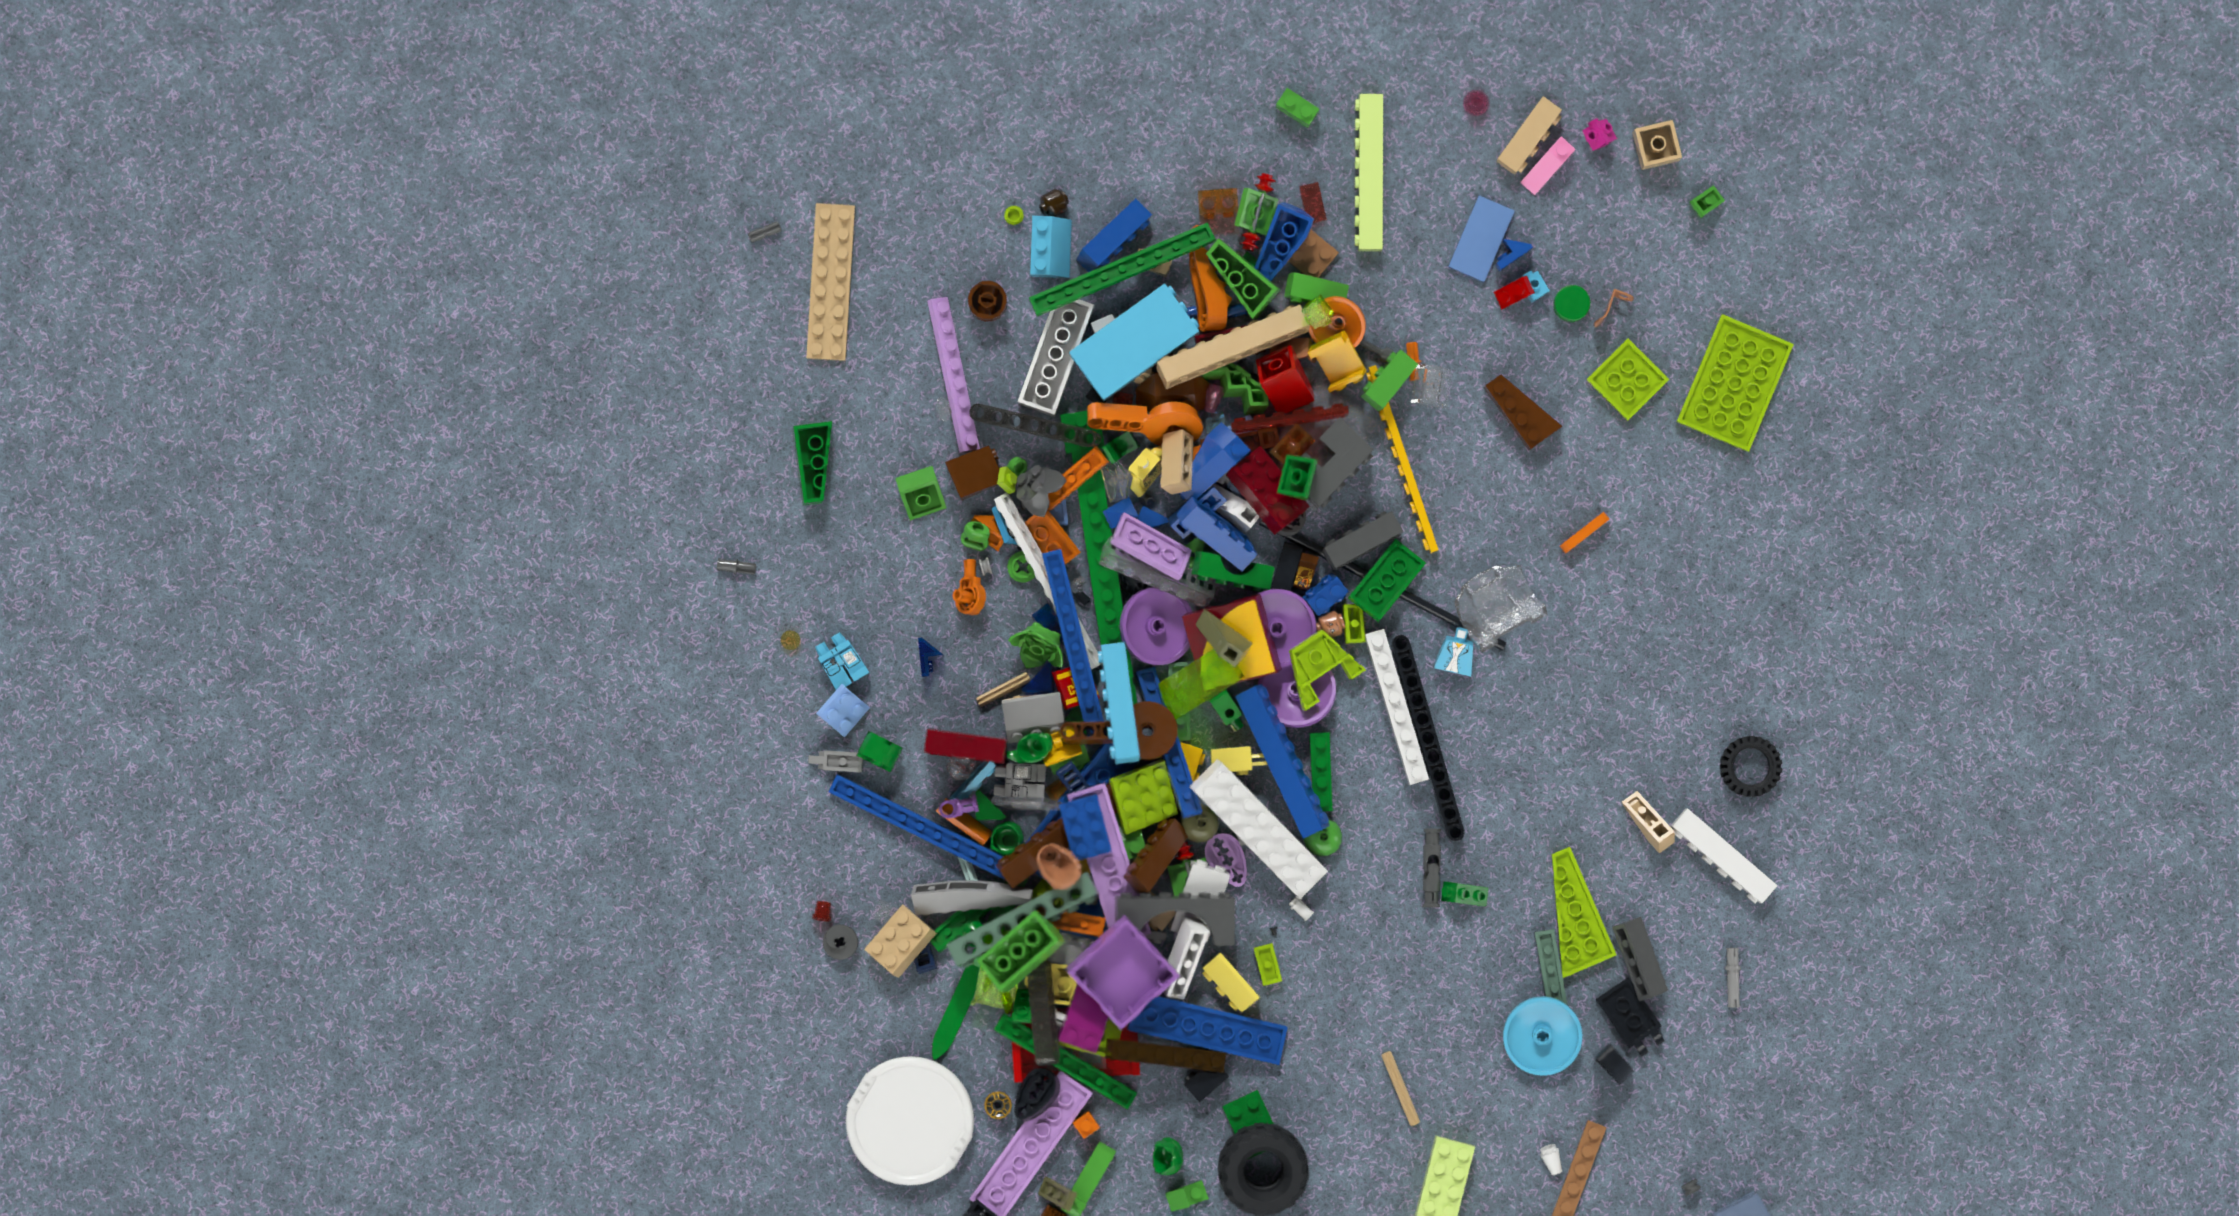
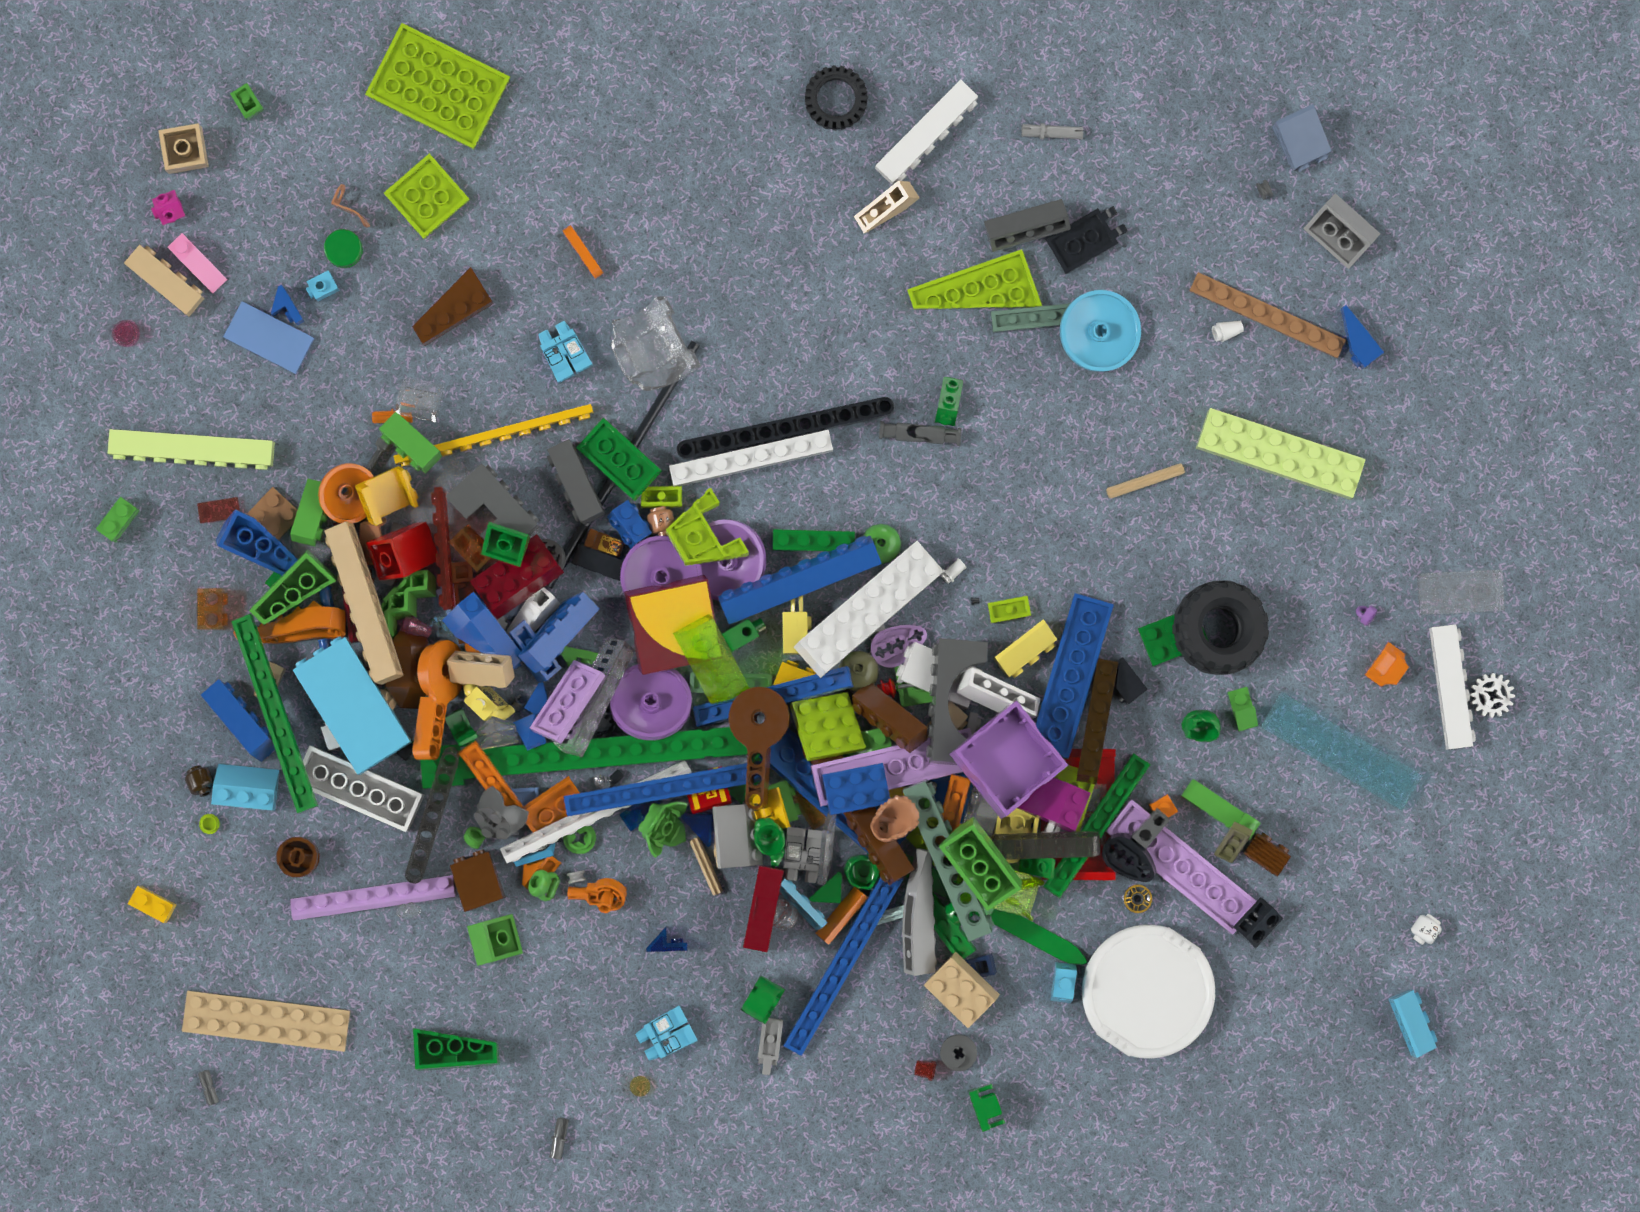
camera: 85 degrees left, 0 degrees up
(790, 971) = (986, 1107): none -> green panel
(843, 710) = (717, 1035): light blue plate -> none
(913, 1038) = (1063, 982): none -> medium azure torso
(934, 166) = (152, 904): none -> yellow piece
(958, 808) = (827, 920): medium lavender connector -> none
(1007, 480) = (487, 848): lime plate -> none
(1064, 769) = (794, 807): dark blue slope -> none
(1066, 1113) = (1150, 828): none -> dark grey leg
(1120, 704) = (728, 745): medium azure brick -> none
(1123, 398) = (410, 721): clear red slope -> none
(1224, 639) = (669, 632): olive slope -> none
(1254, 575) = (592, 641): green arch -> none
(1256, 211) = (224, 569): bright green plate -> none
(1318, 312) = (334, 511): clear neon green brick -> none
(1456, 654) = (700, 393): medium azure torso -> none
(1492, 520) = (562, 346): none -> medium azure hips
(1514, 292) = (327, 307): red plate -> none
(1614, 1064) = (1133, 259): black beam -> none

